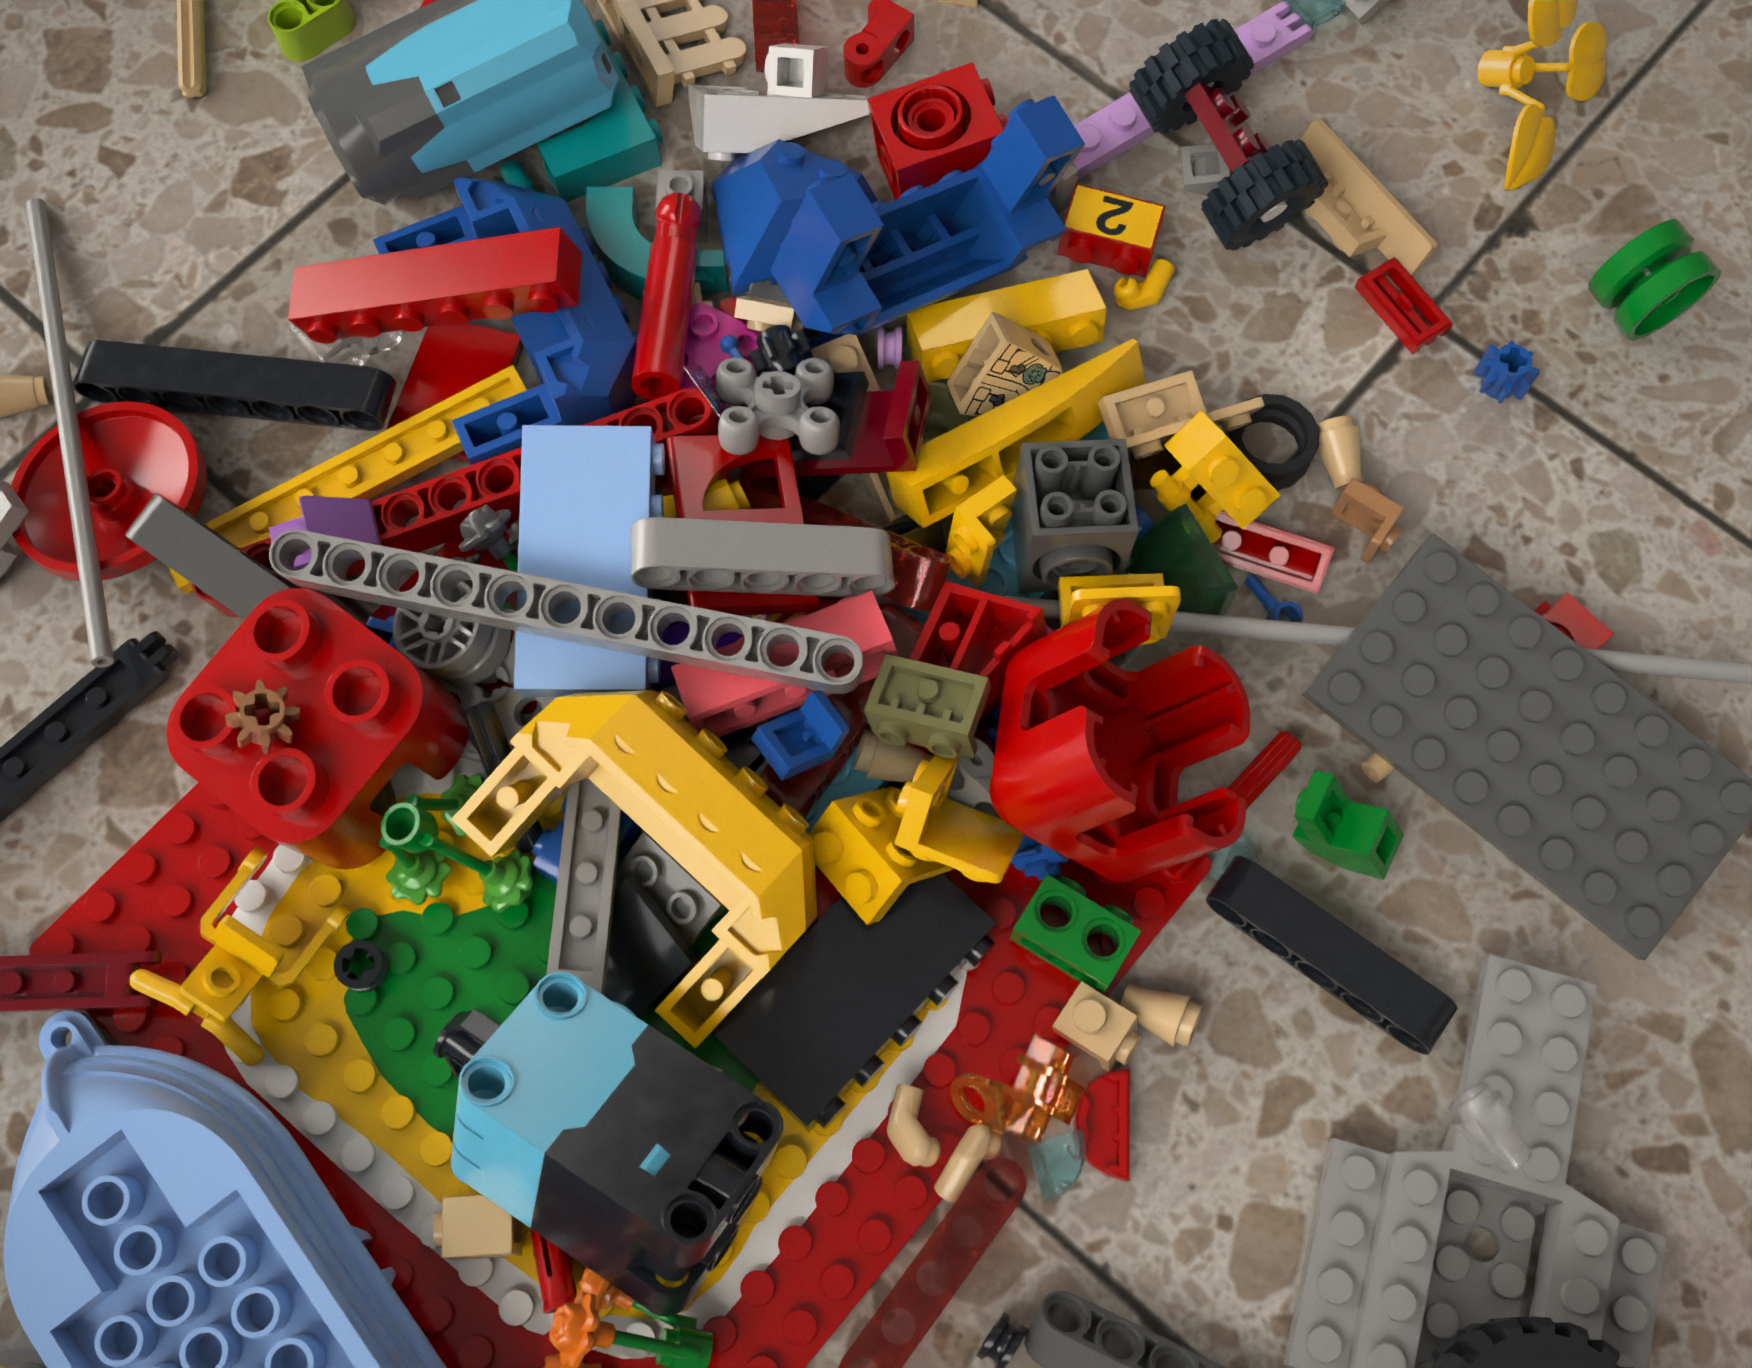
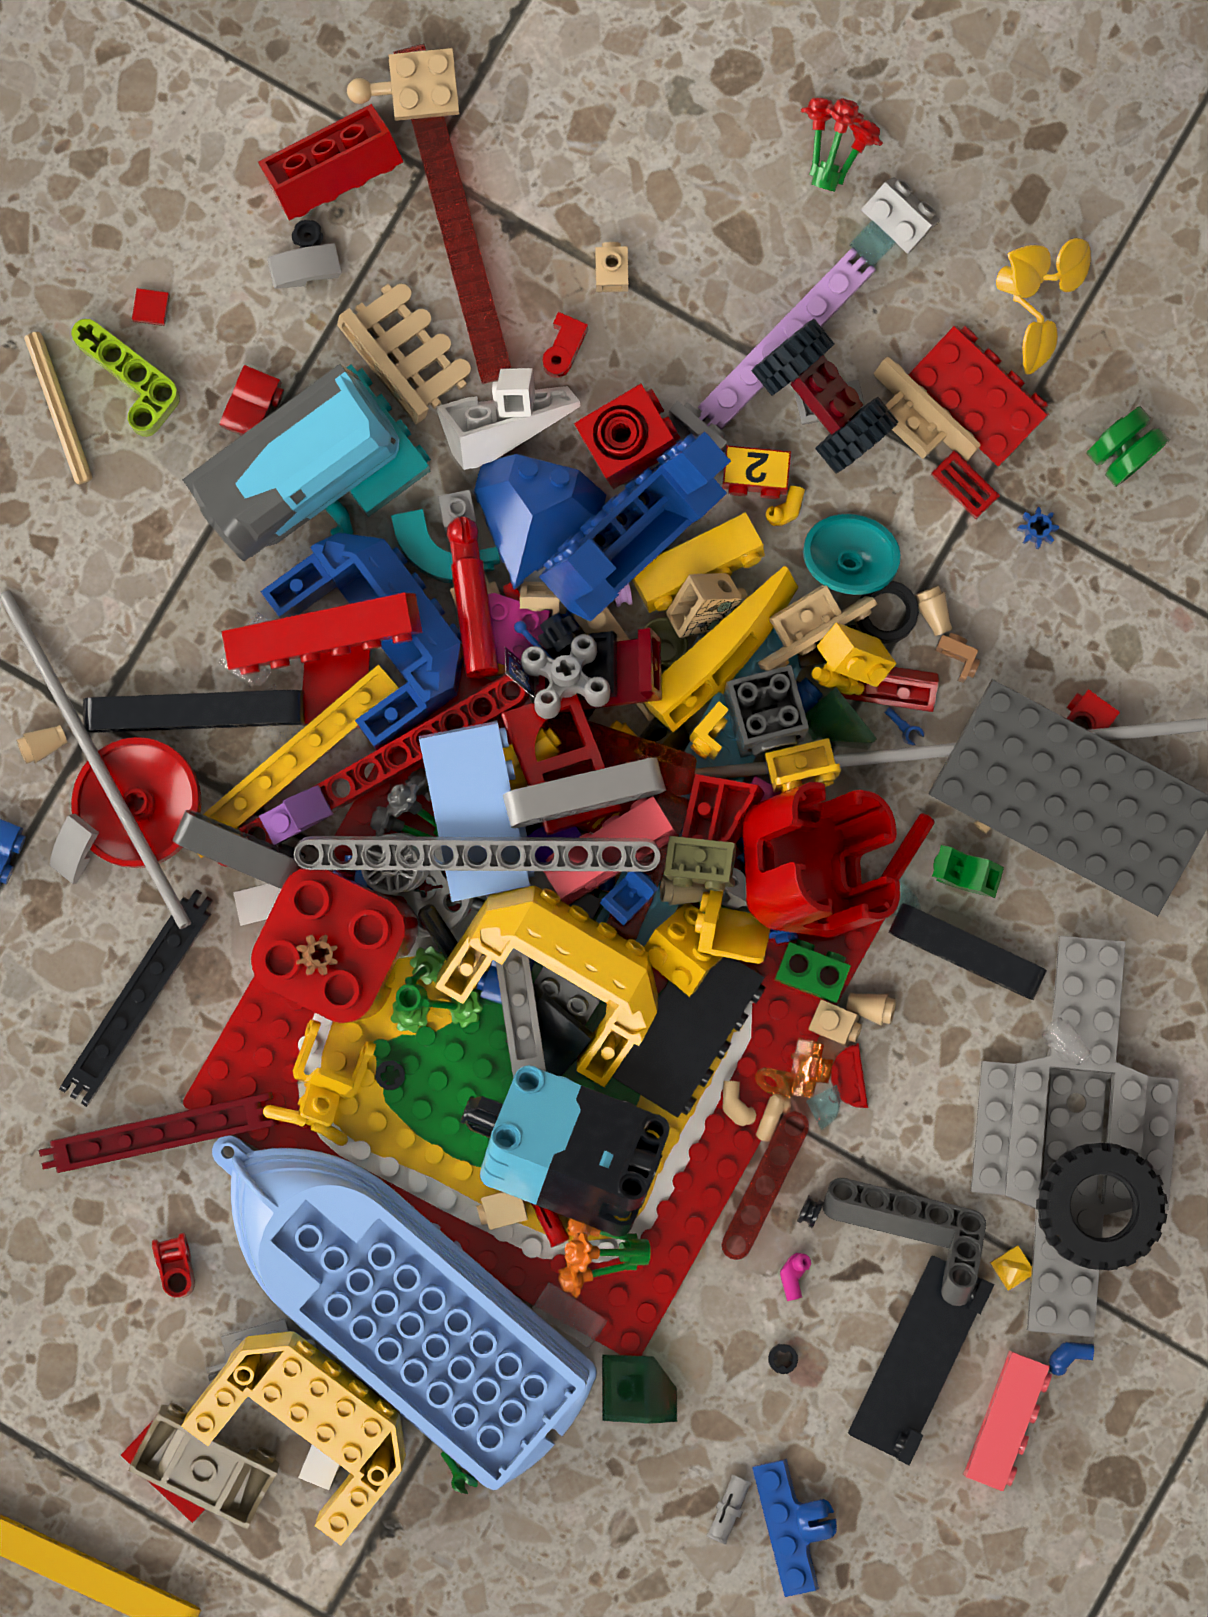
camera: 10 degrees left, 15 degrees up
(1231, 352) = (853, 543): none -> teal dish
(1447, 192) = (980, 393): none -> red bracket

